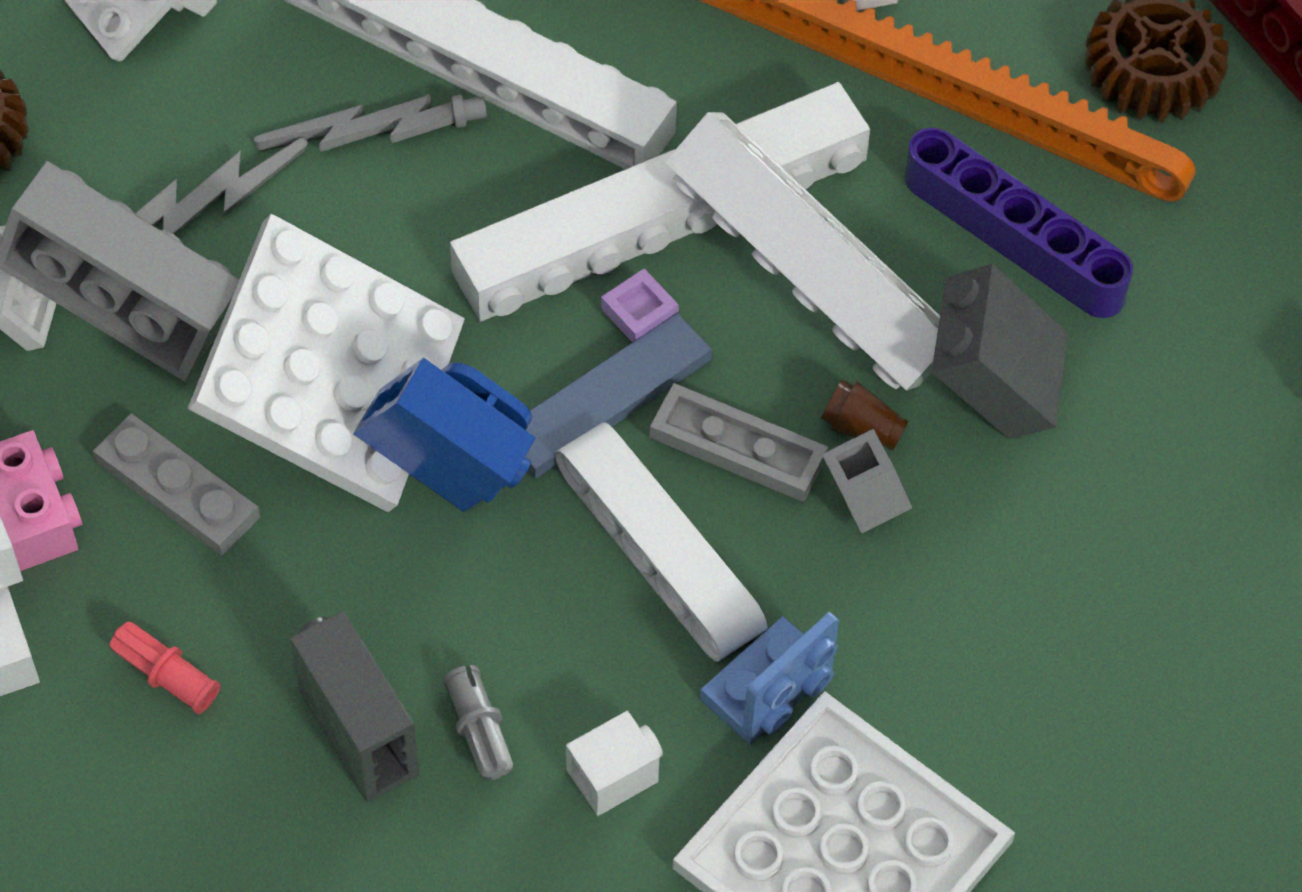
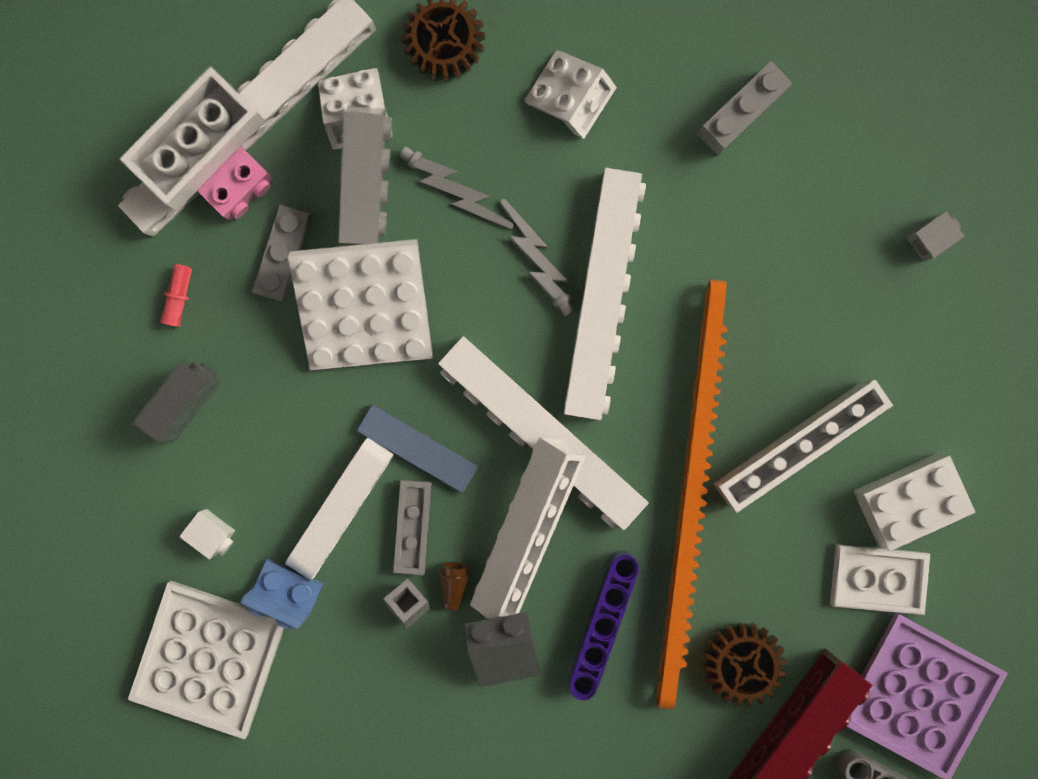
camera: 70 degrees right, 30 degrees up
(450, 431) = (339, 386): blue brick -> none
(478, 722) = (206, 460): light grey axle -> none
(638, 305) = (474, 446): lavender plate -> none

